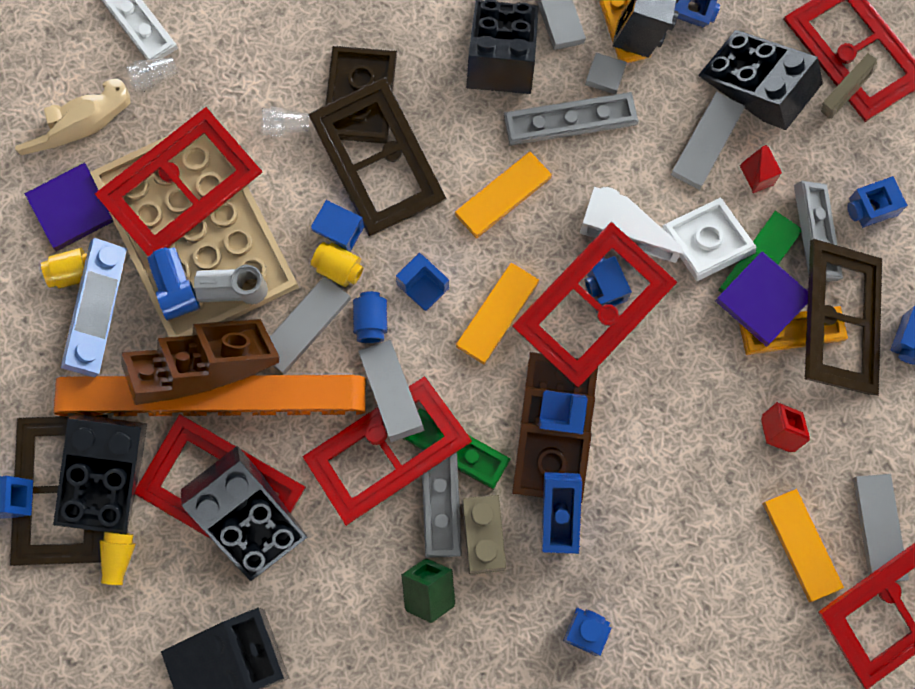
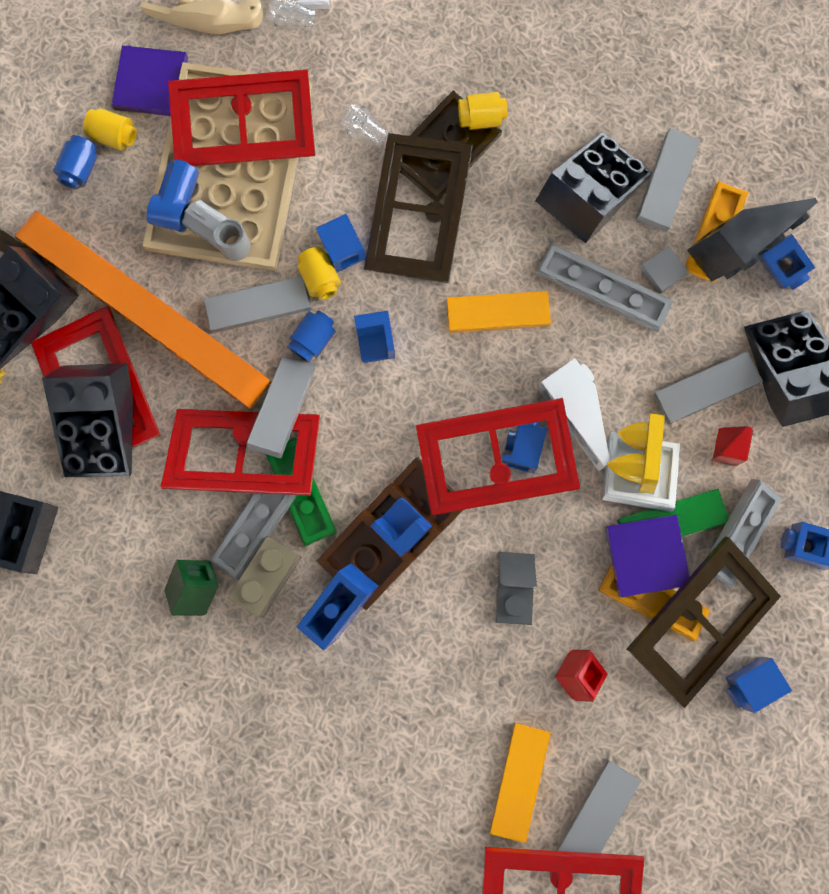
camera: 40 degrees right, 5 degrees up
(56, 314) = (75, 162): none -> blue brick
(94, 308) = (101, 173): plate -> none
(200, 362) = (148, 275): reddish brown slope -> none
(372, 45) = (482, 110): none -> yellow brick
(497, 313) = (418, 406): light orange tile -> none
(588, 631) = (288, 717): blue brick -> none
(683, 399) = (515, 588): none -> dark grey slope
(712, 230) = (641, 467): none -> yellow tile

